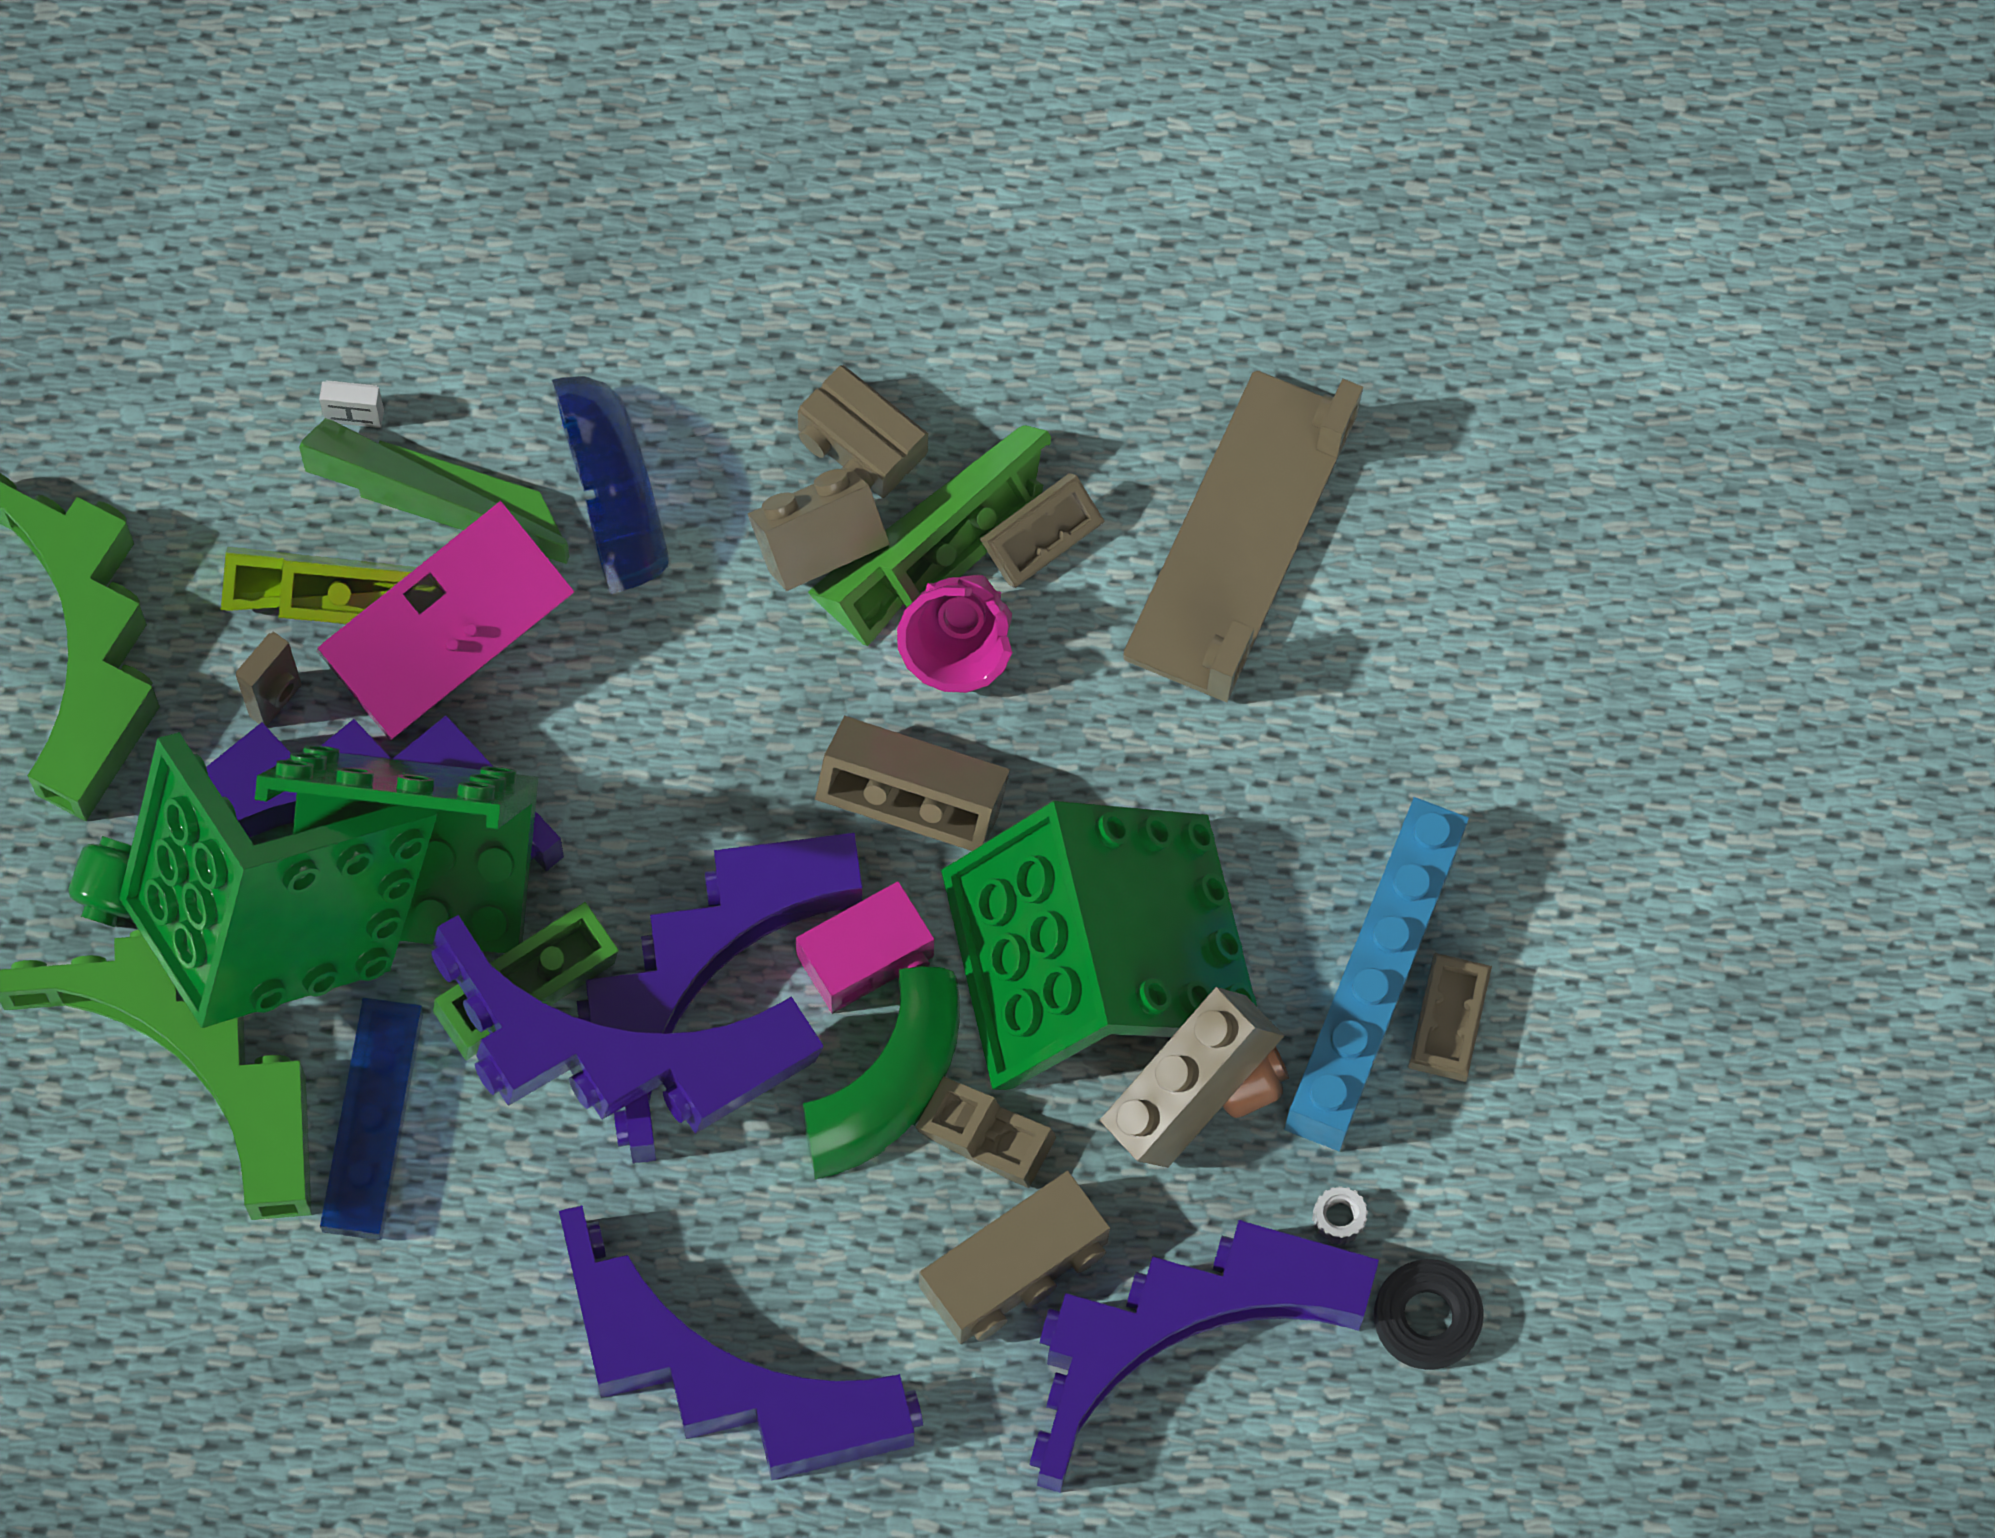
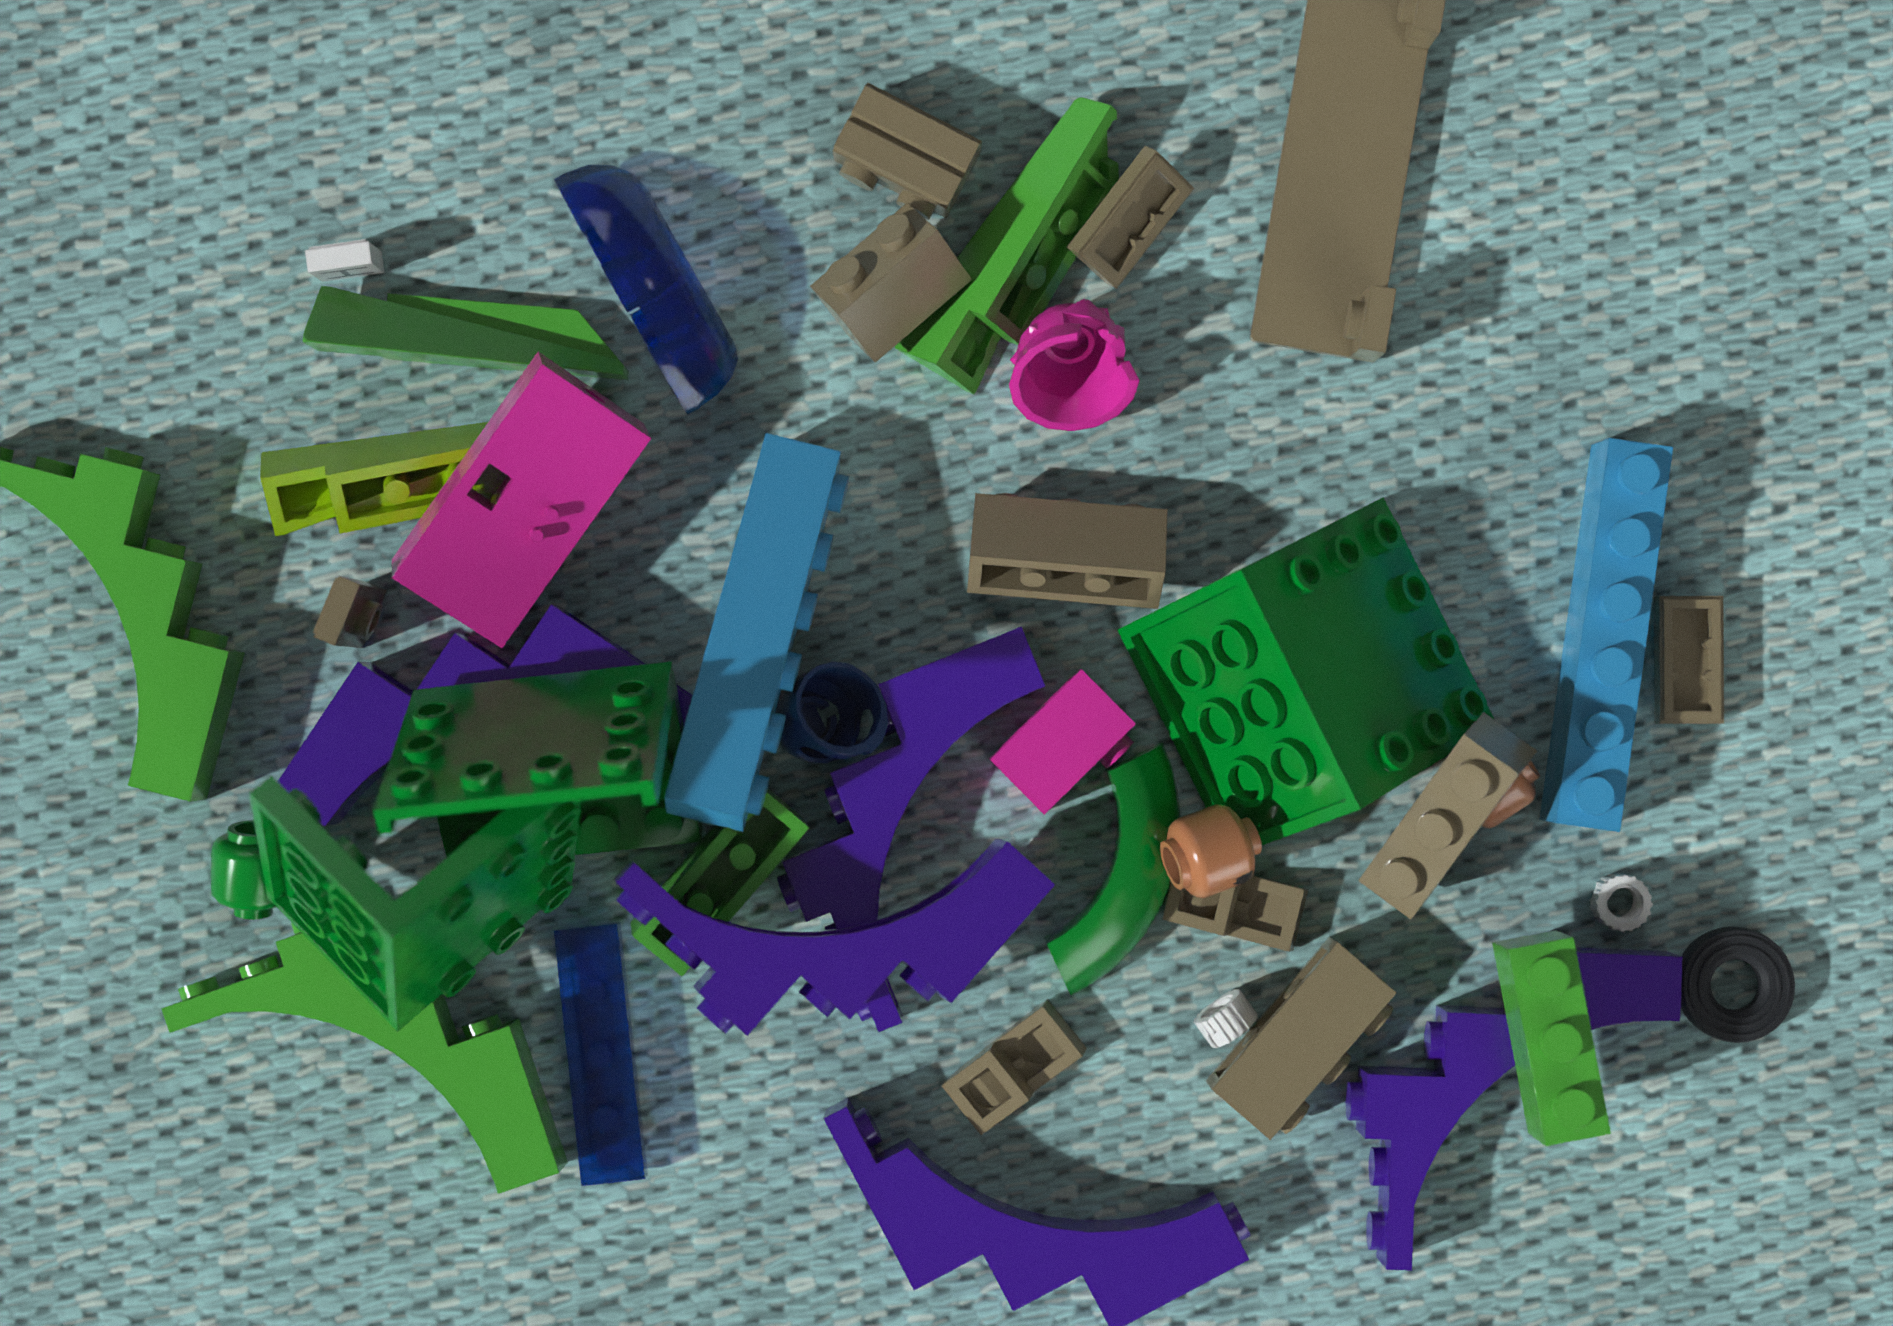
camera: 10 degrees left, 20 degrees up
(616, 778) = (754, 634): none -> dark azure brick
(661, 847) = (851, 693): none -> dark blue helmet
(745, 1227) = (1014, 1067): none -> dark tan slope
(950, 1226) = (1226, 1018): none -> white axle
(972, 1060) = (1210, 851): none -> nougat head
(1237, 1285) = (1551, 1037): none -> bright green brick

